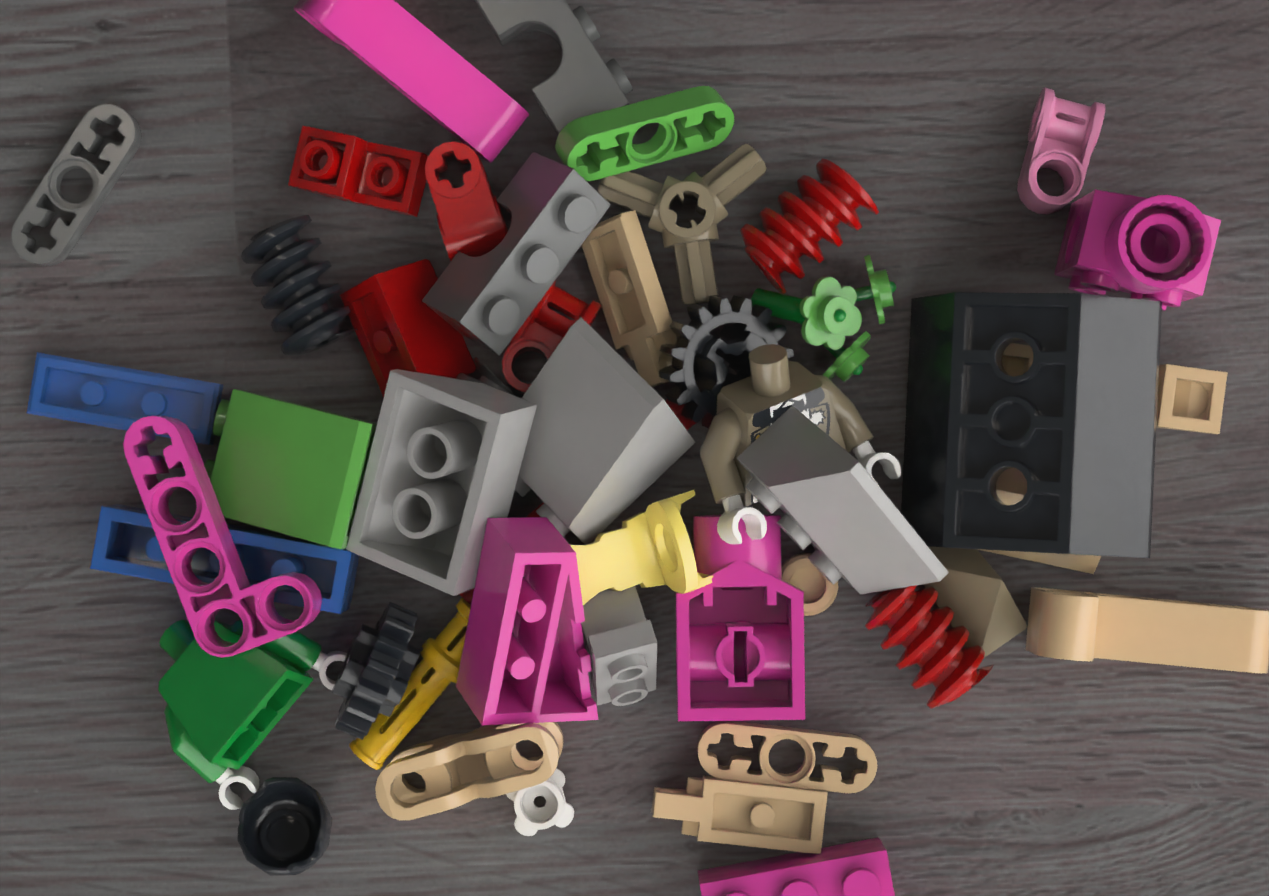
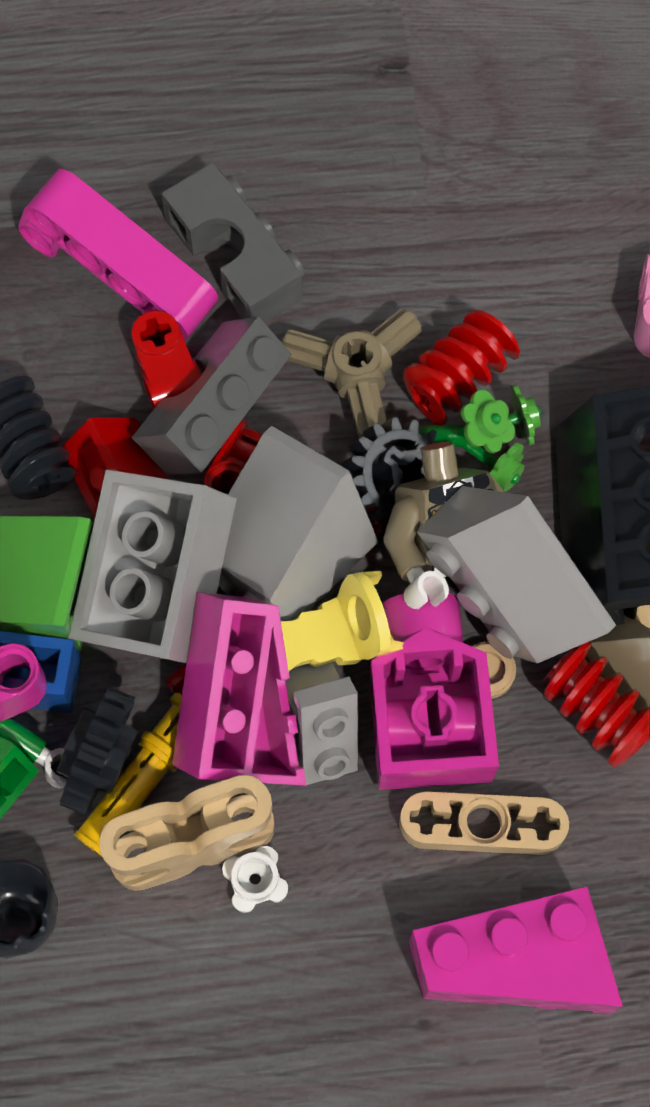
camera: 10 degrees left, 20 degrees down
(359, 171) = (75, 353): red slope -> none
(630, 293) = (307, 412): tan hinge -> none
(701, 125) = (338, 308): bright green beam -> none
(746, 813) = (450, 874): tan hinge -> none

